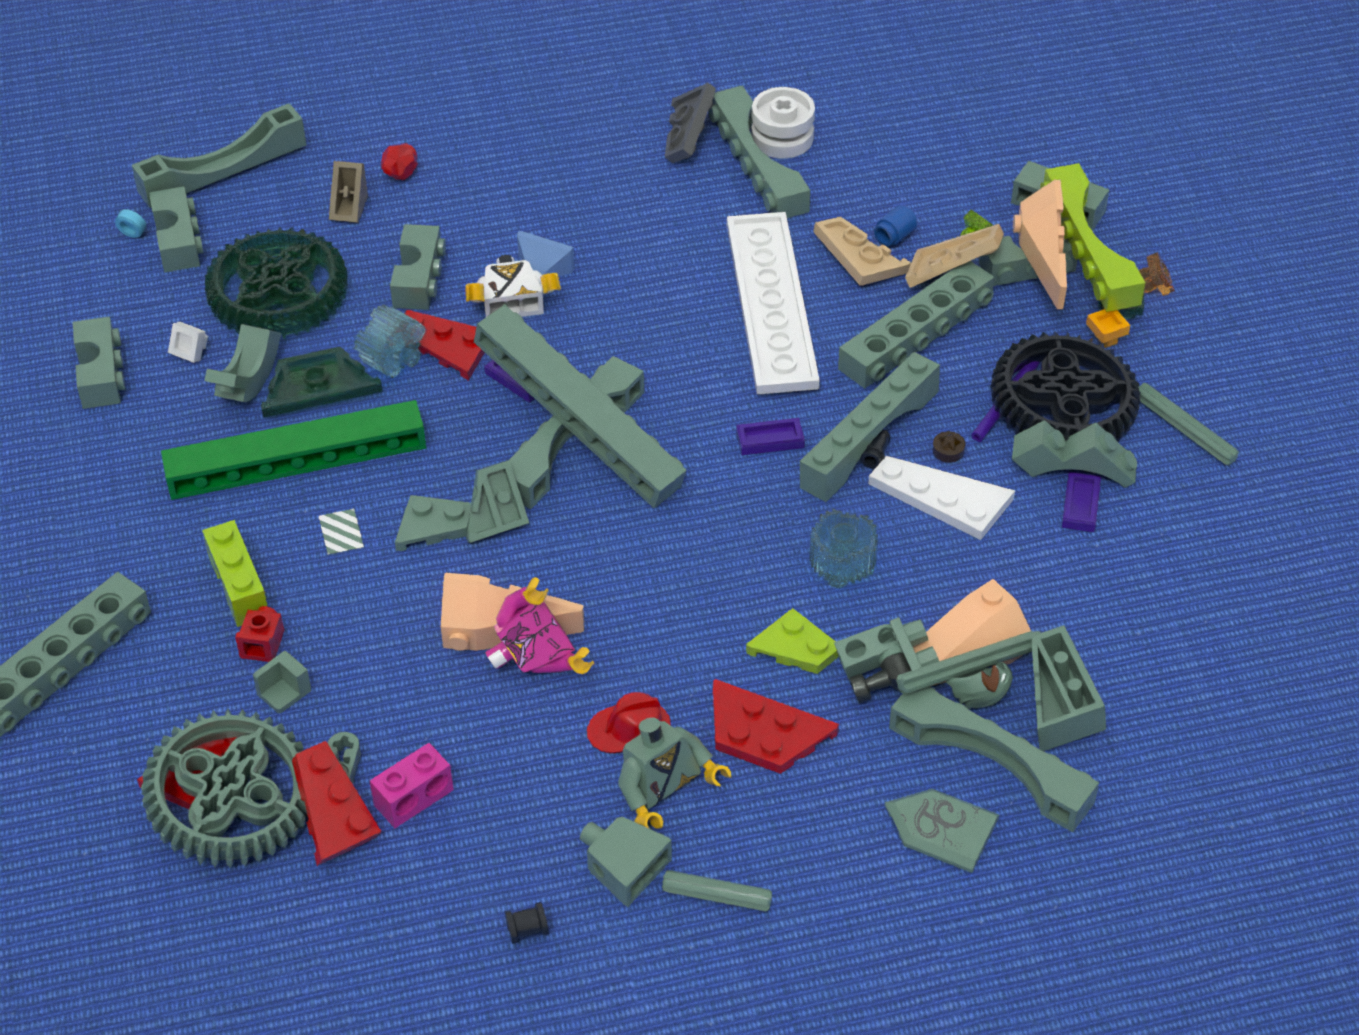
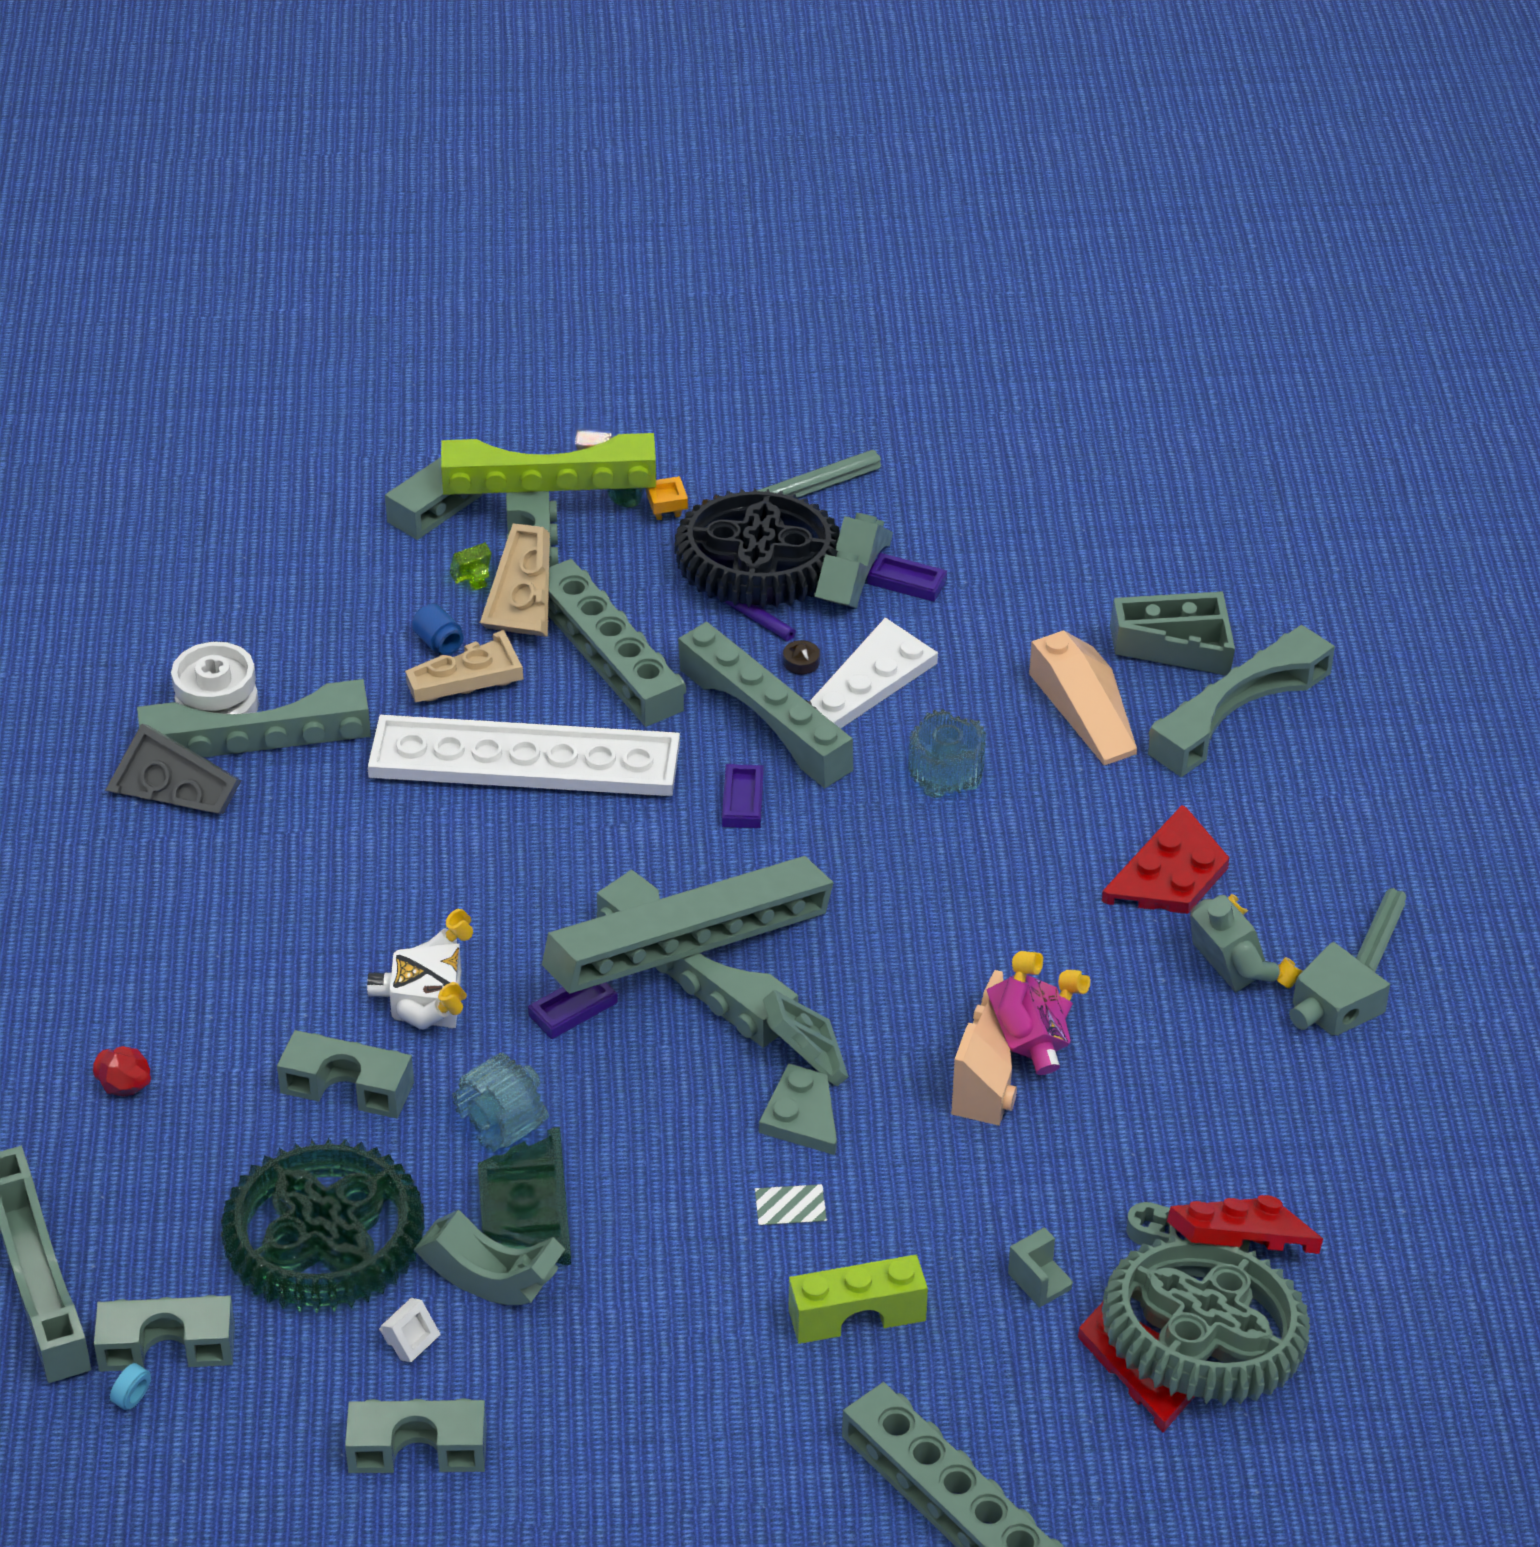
camera: 80 degrees left, 5 degrees down
(262, 628) = (959, 1285): red brick -> none
(293, 449) = (651, 1233): green brick -> none
(348, 191) = (169, 1131): dark tan slope -> none
(411, 785) = (1219, 1155): dark pink brick -> none
(449, 343) = (489, 1040): red wing -> none
(526, 922) = (1410, 1083): black bush -> none
(545, 255) = (368, 949): medium blue slope -> none
(620, 723) = (1147, 973): red piece -> none
(795, 643) = (1058, 823): lime wing -> none
(884, 647) = (1104, 738): sand green hips -> none
(943, 827) = (1318, 756): sand green tile -> none
(965, 663) = (1134, 683): sand green axle -> none
(982, 686) = (1153, 685): sand green hair -> none
(1043, 238) = (554, 494): light nougat wedge -> none

